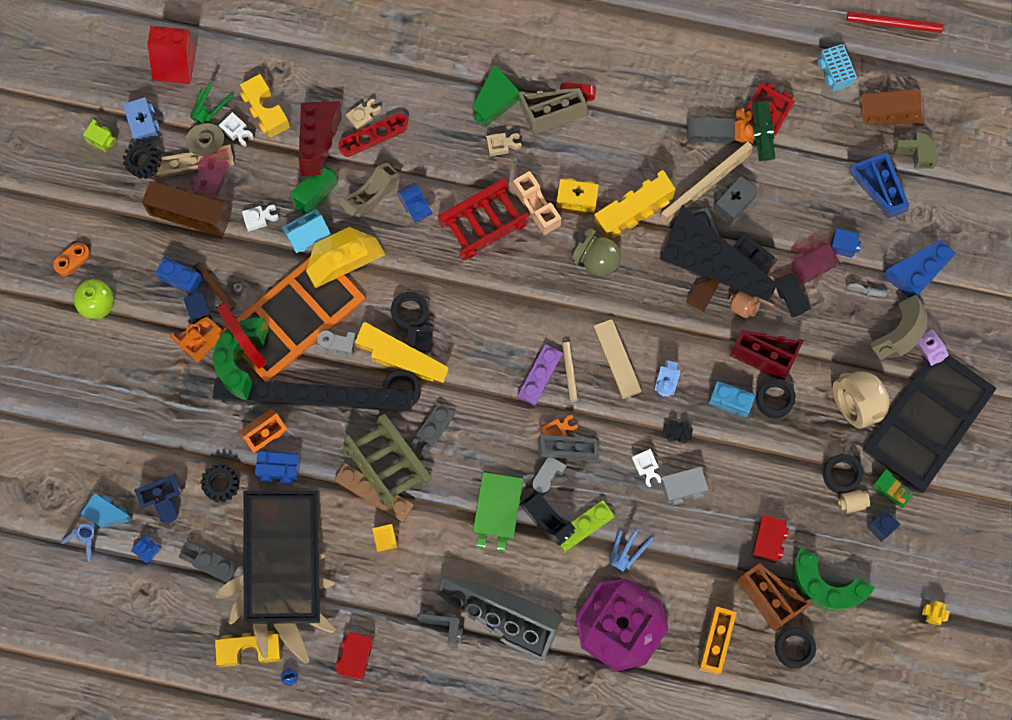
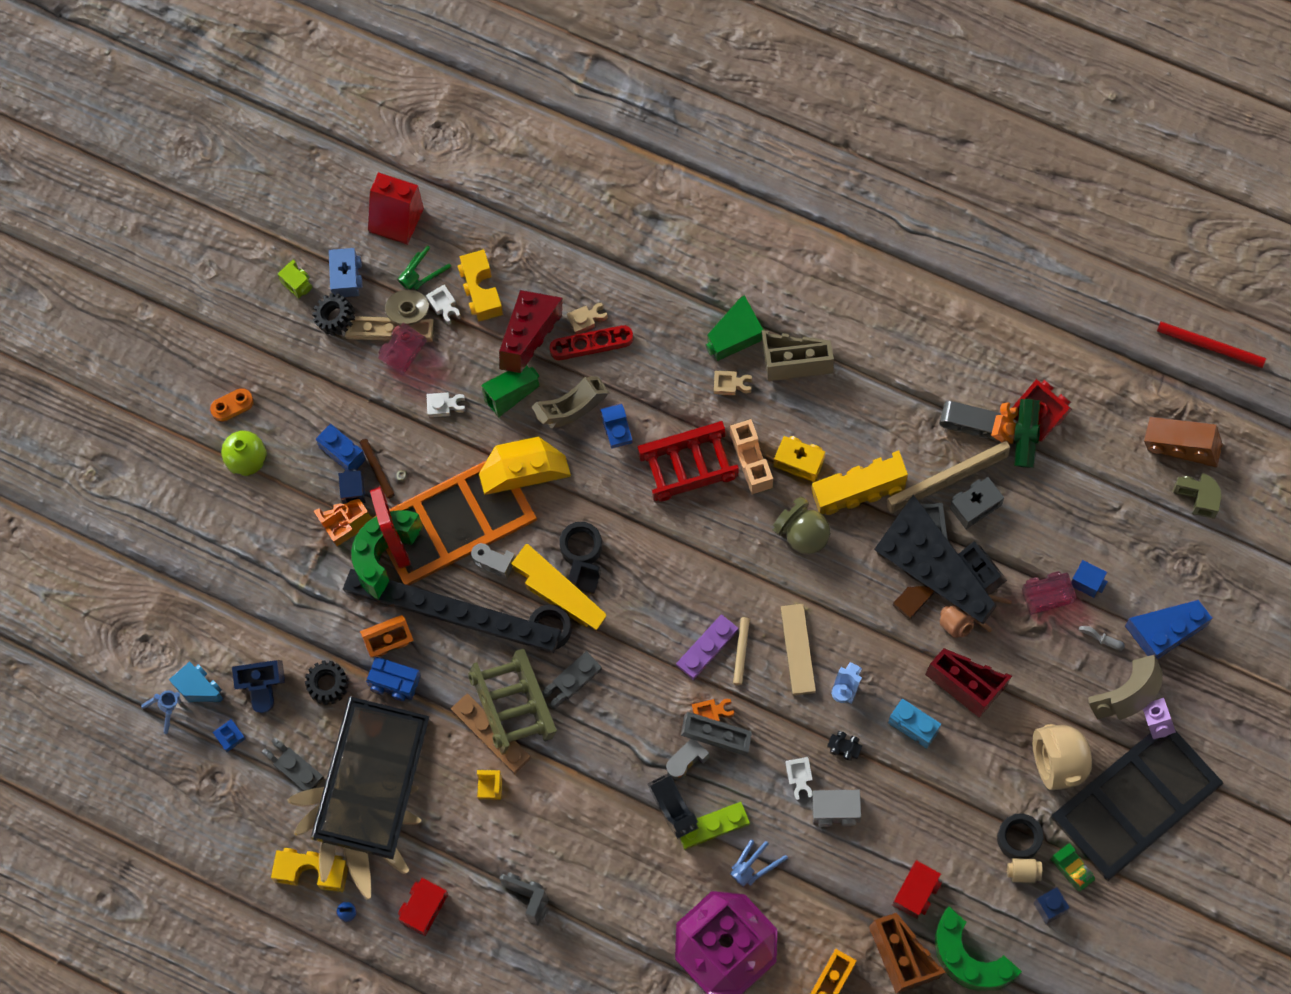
camera: 20 degrees right, 5 degrees down
(186, 208) = (367, 377): reddish brown brick -> none
(306, 231) = (490, 430): medium azure brick -> none
(497, 509) = (621, 783): bright green tile -> none
(509, 616) = (607, 907): dark grey wedge -> none
(588, 91) = (839, 346): red beam -> none
(786, 387) = (975, 720): black tyre -> none
(792, 294) = (1014, 623): black slope -> none
(837, 68) = (1131, 381): medium azure brick -> none
(881, 184) = (1147, 522): blue wedge -> none

